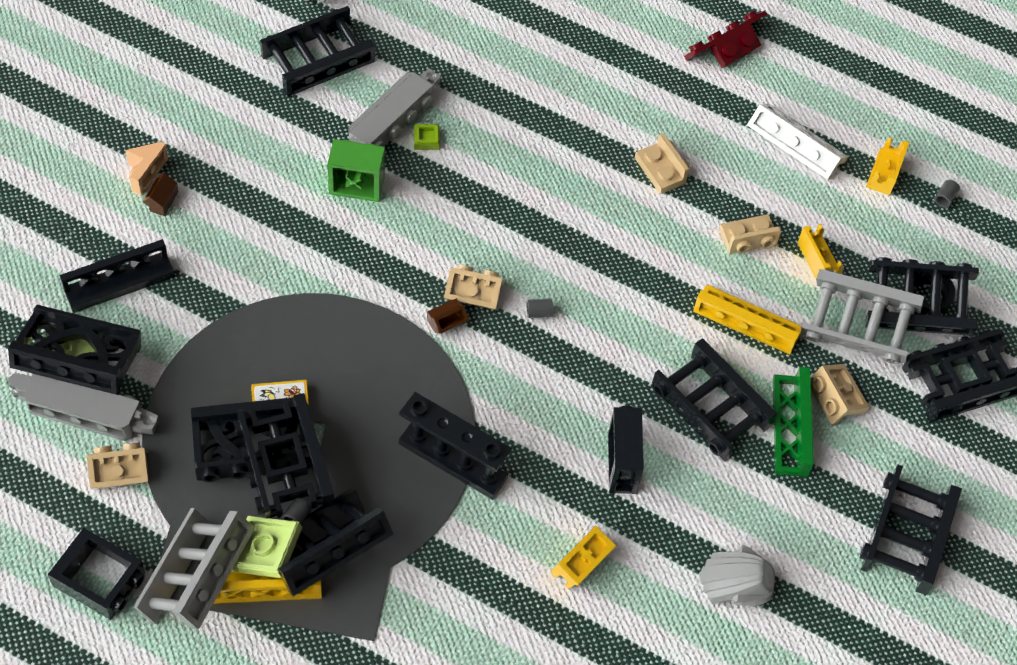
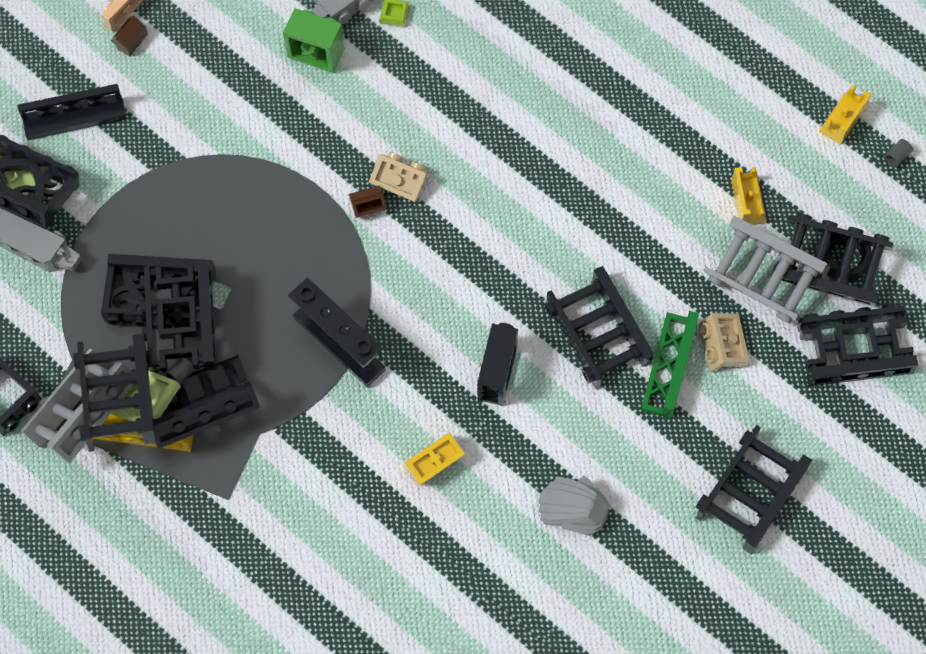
camera: 20 degrees right, 10 degrees up
(117, 467) = (35, 296): tan bracket -> none
(269, 544) = (140, 401): none -> black fence
(279, 390) = (196, 250): tile -> none
(539, 308) = (457, 207): dark grey hinge -> none
(663, 165) = (618, 78): tan bracket -> none
(747, 319) = (654, 255): yellow fence -> none
(749, 234) = (684, 164): tan bracket -> none
(796, 140) = (761, 71): white fence -> none

